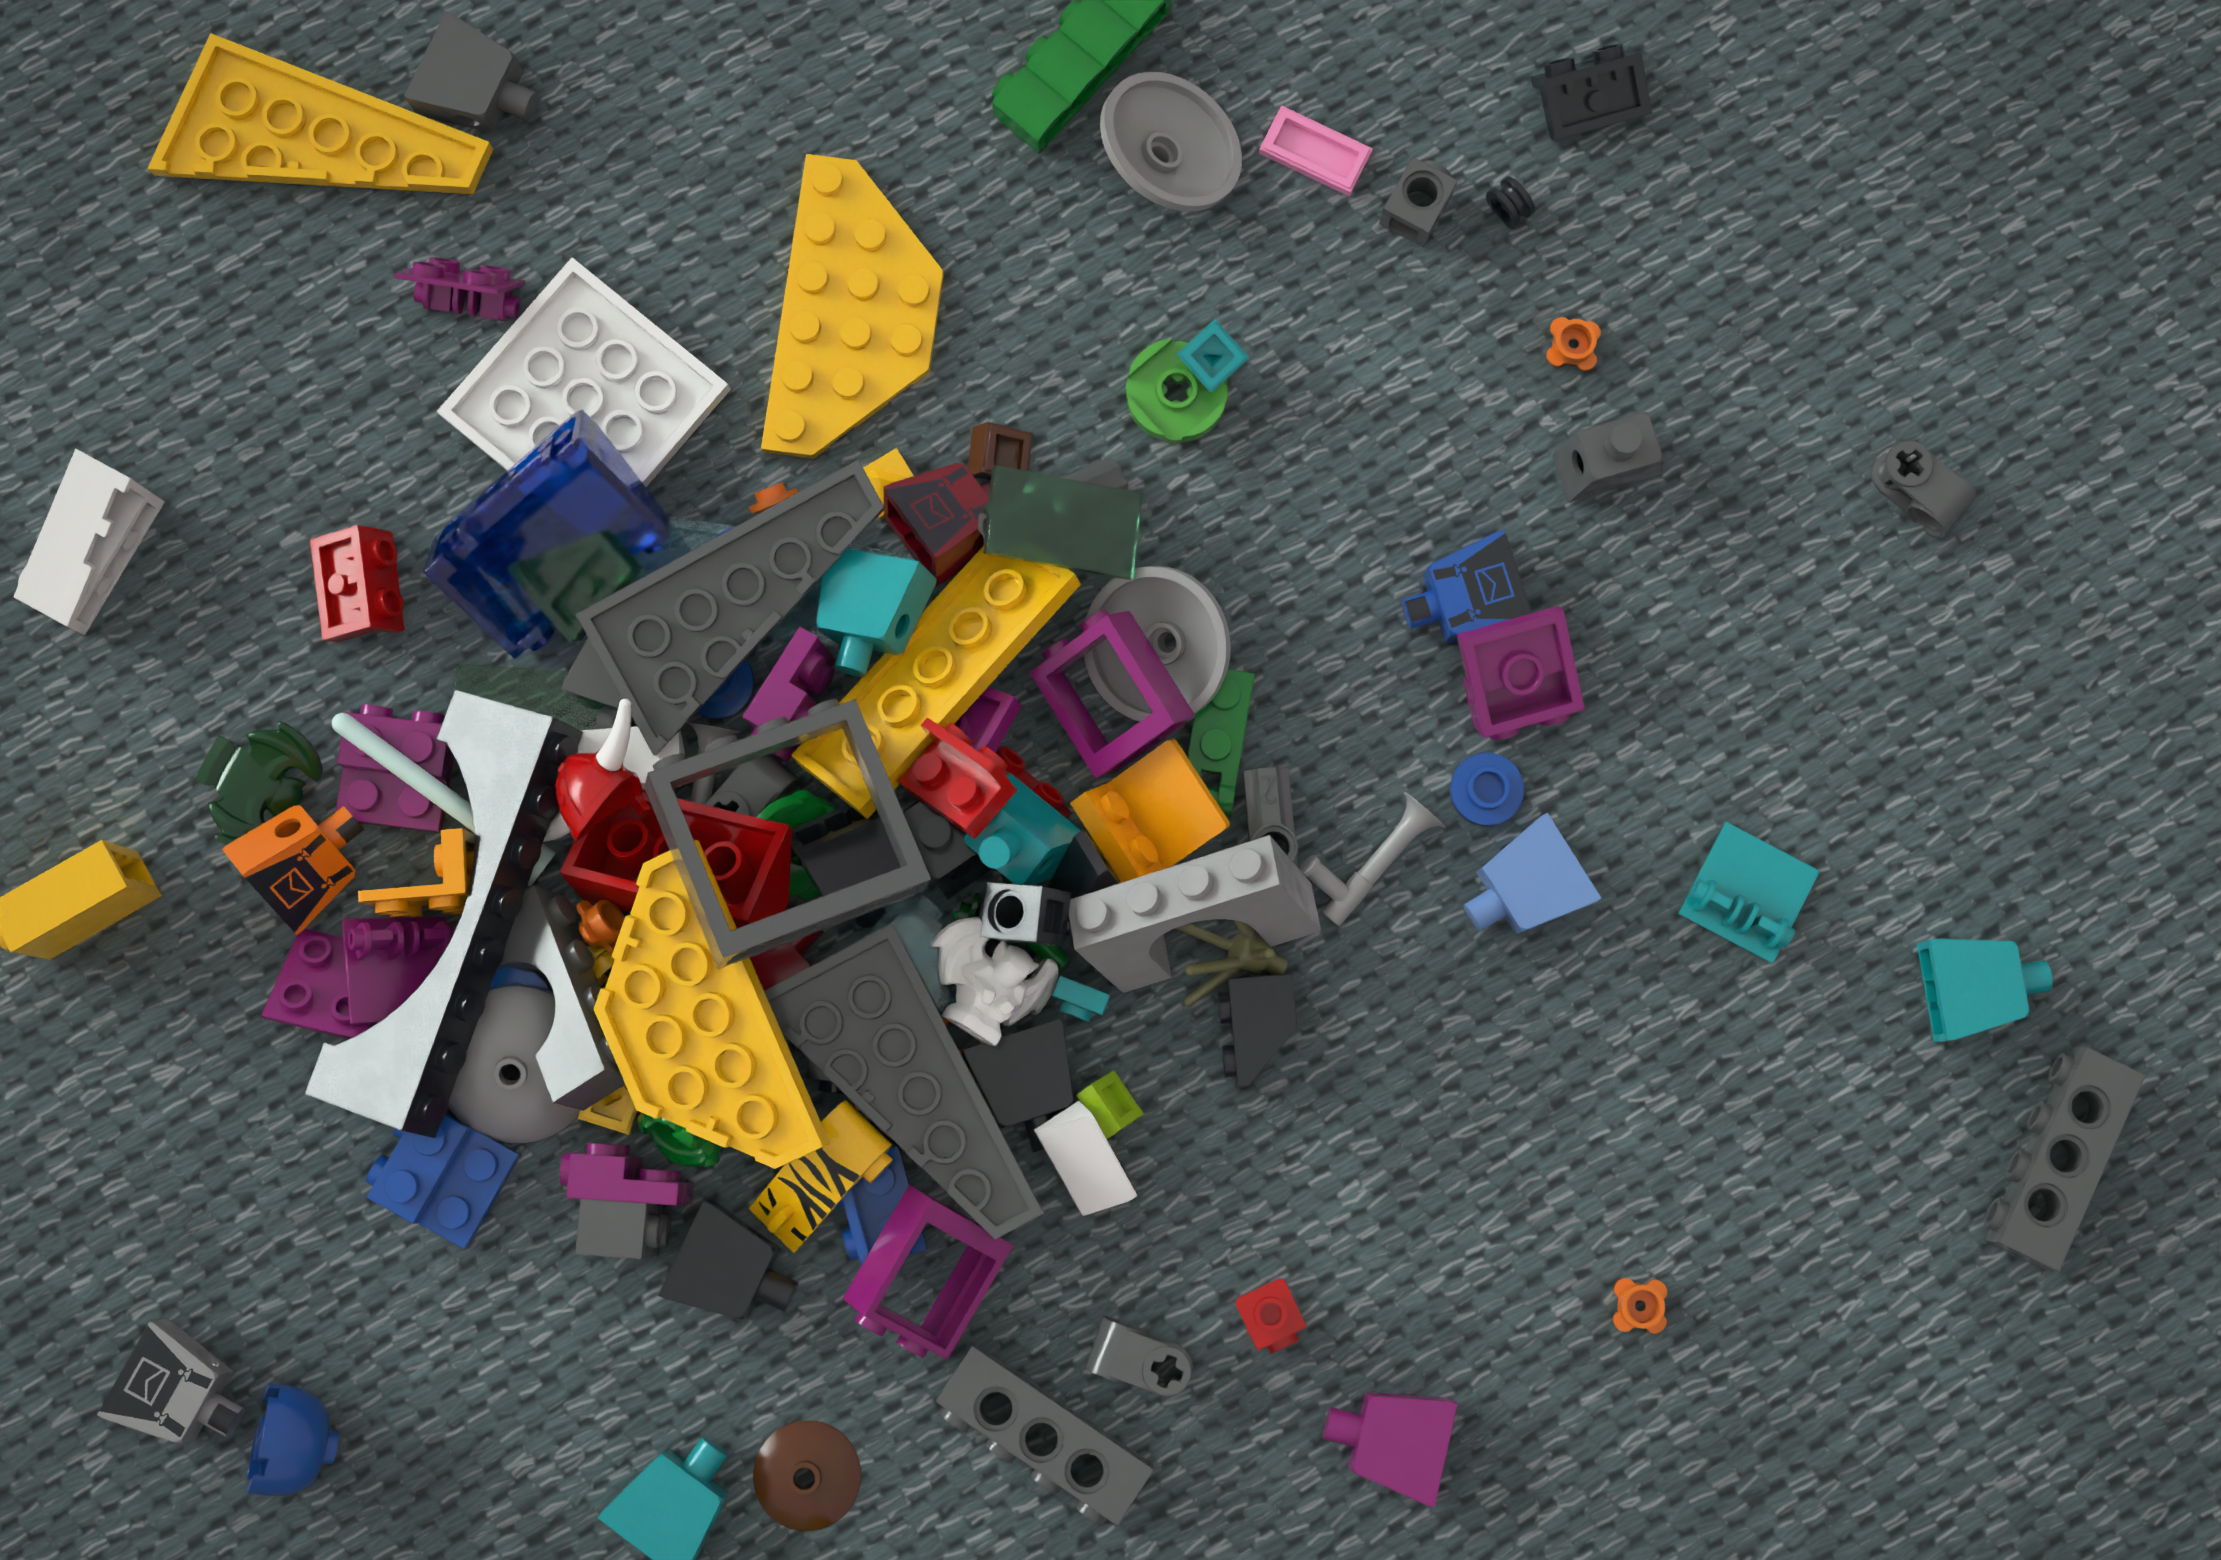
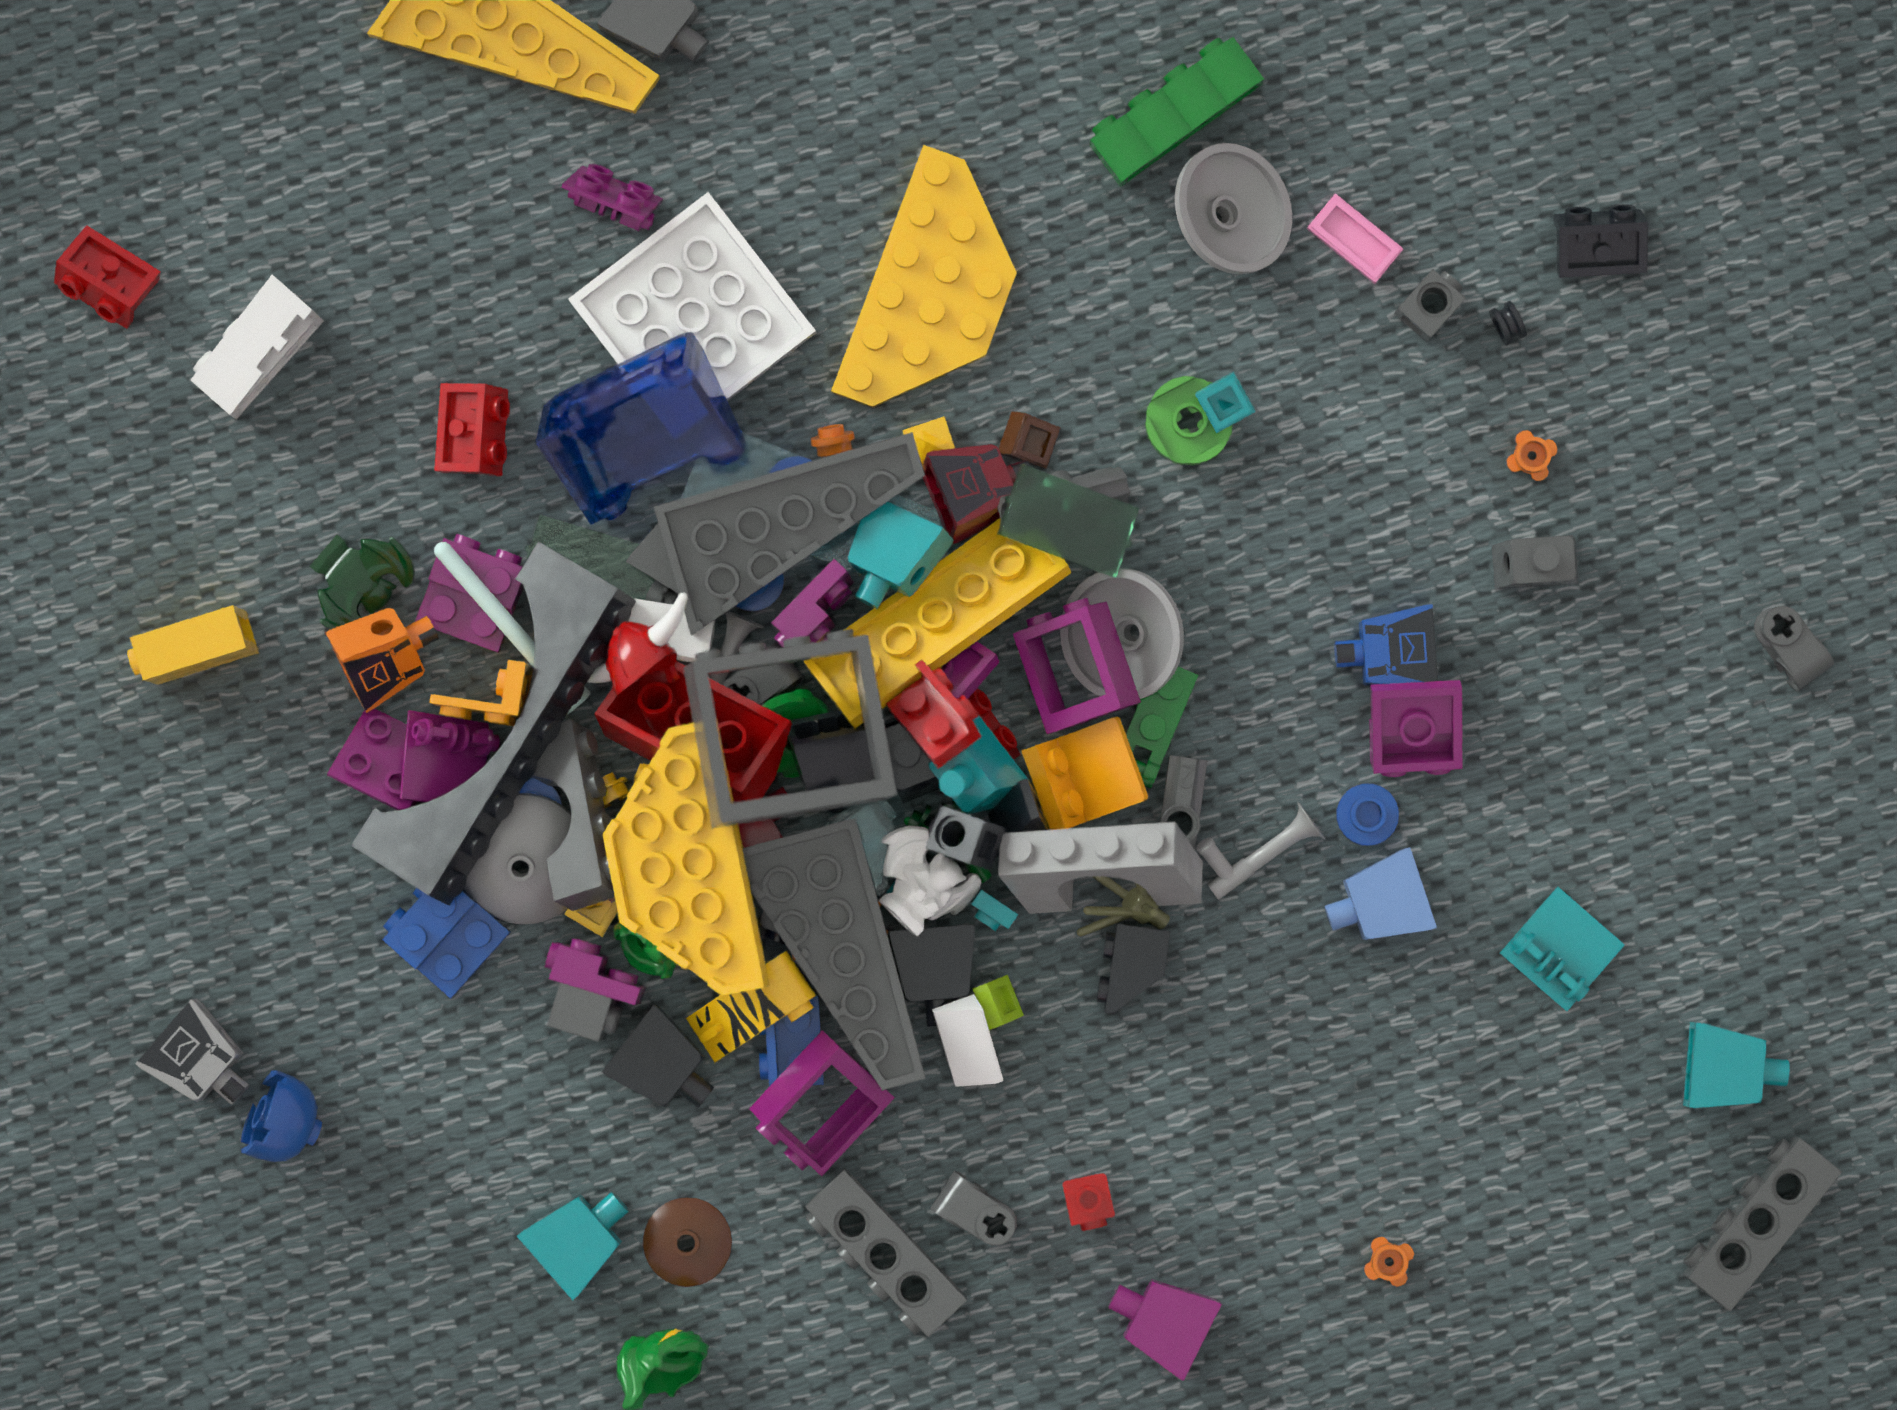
camera: 15 degrees right, 5 degrees up
(575, 578) = (656, 471): clear green wing -> none
(600, 923) = (618, 762): orange plate -> none

